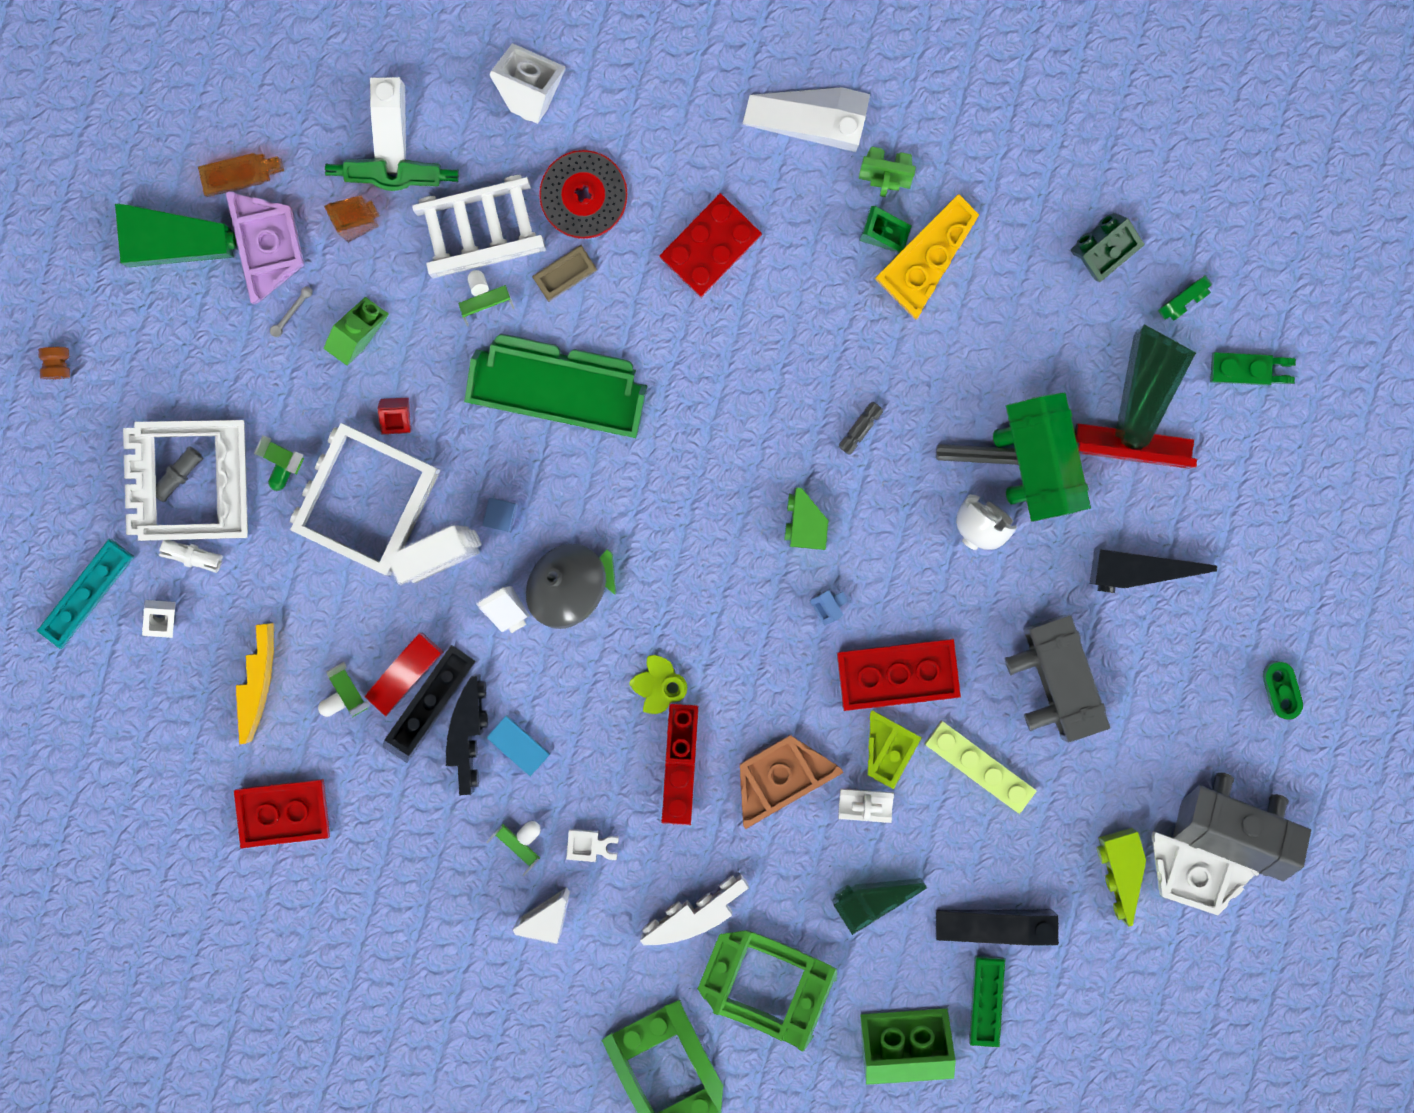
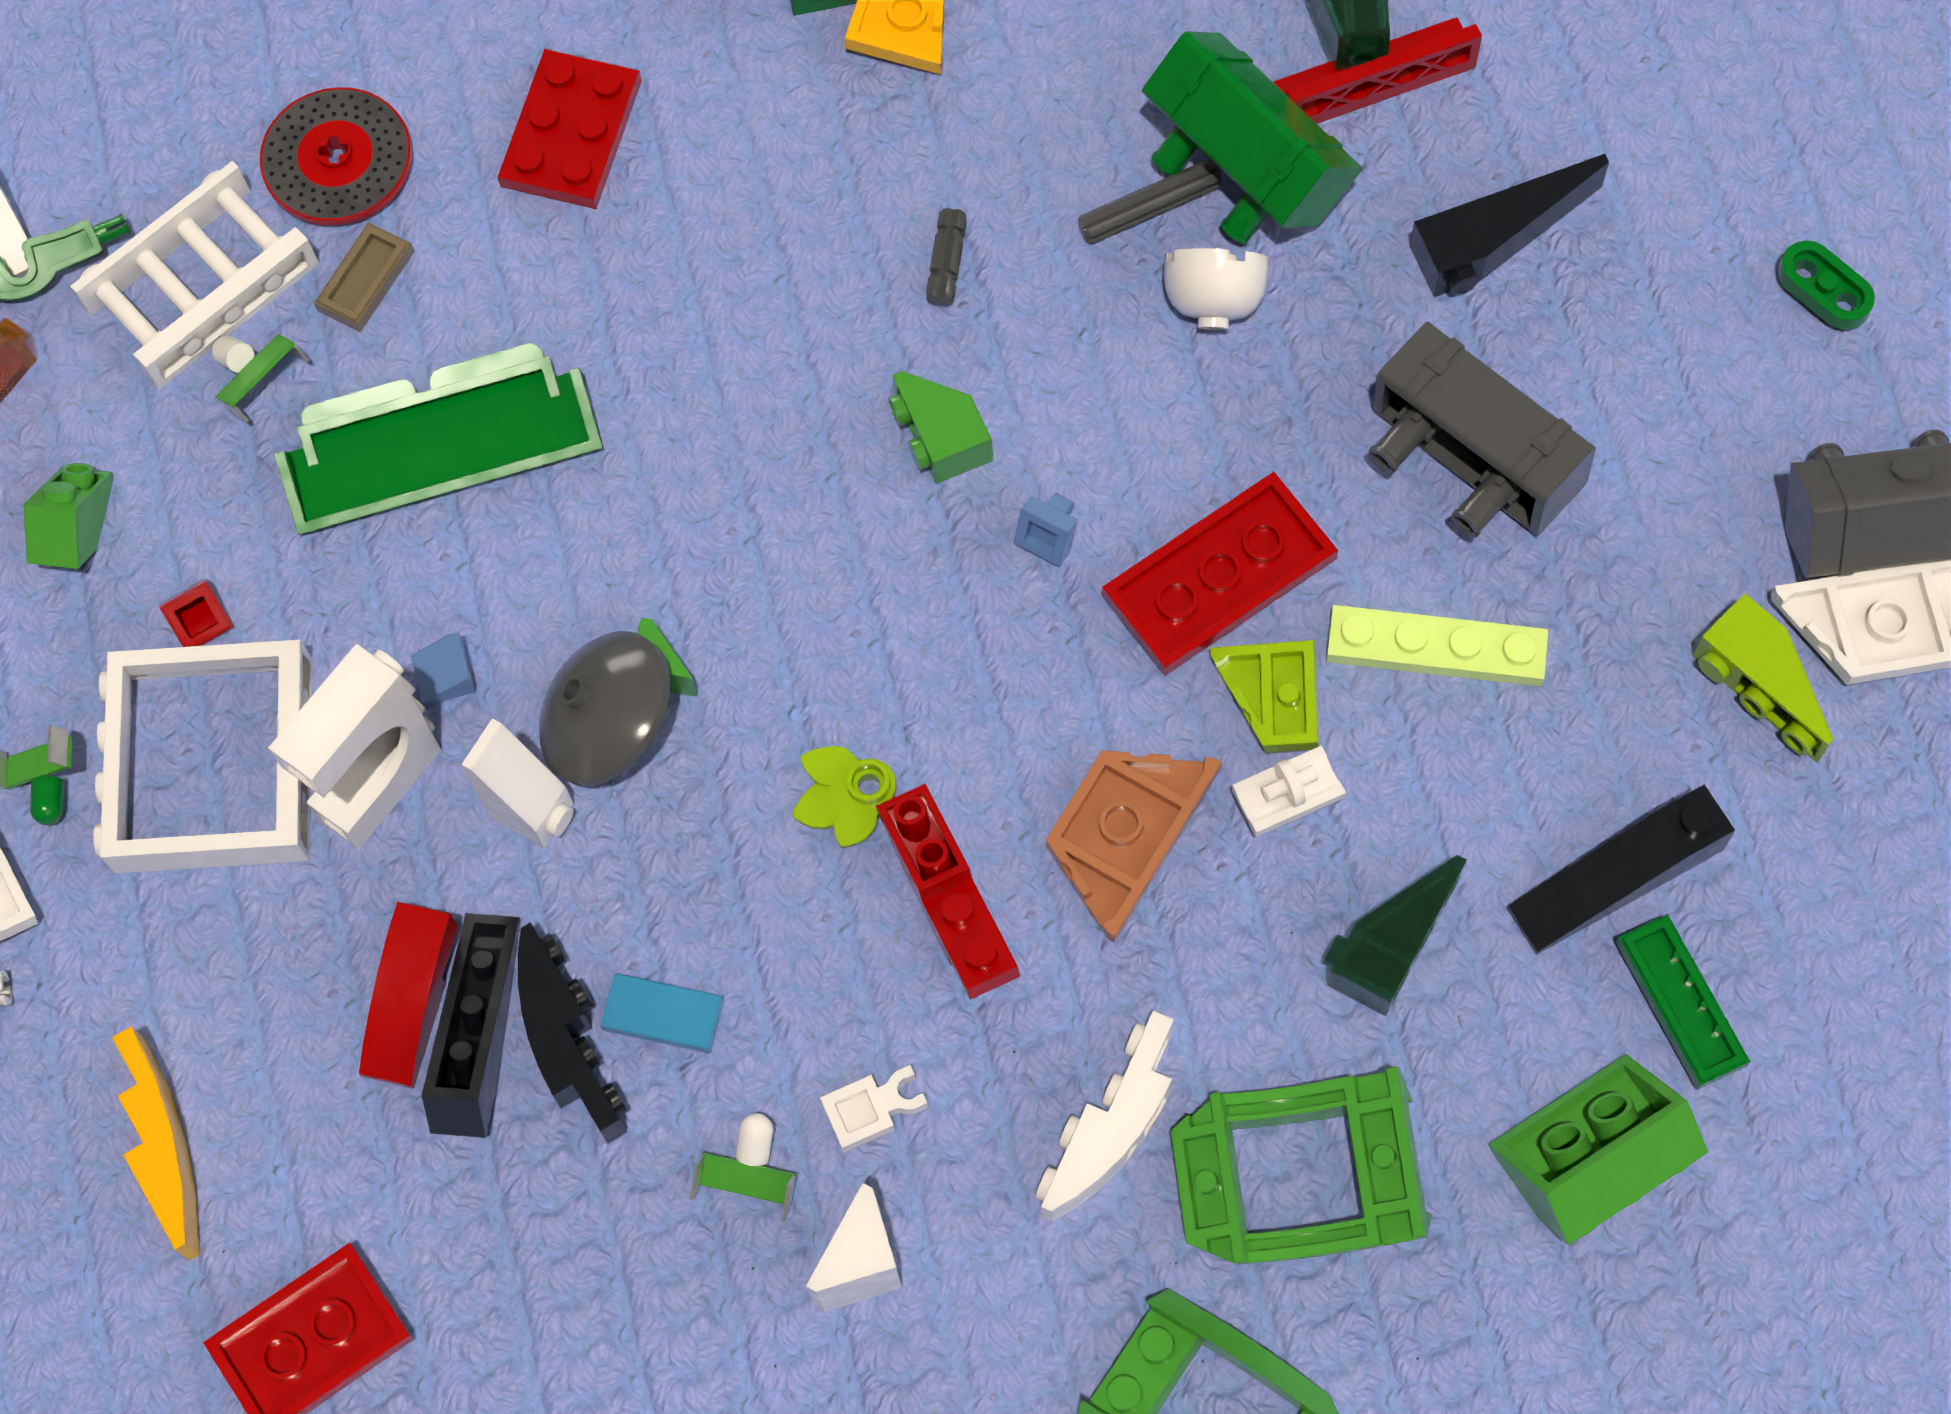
camera: 25 degrees left, 20 degrees down
(345, 694) = (321, 1078): piece -> none
(526, 81) = (170, 48): white slope -> none

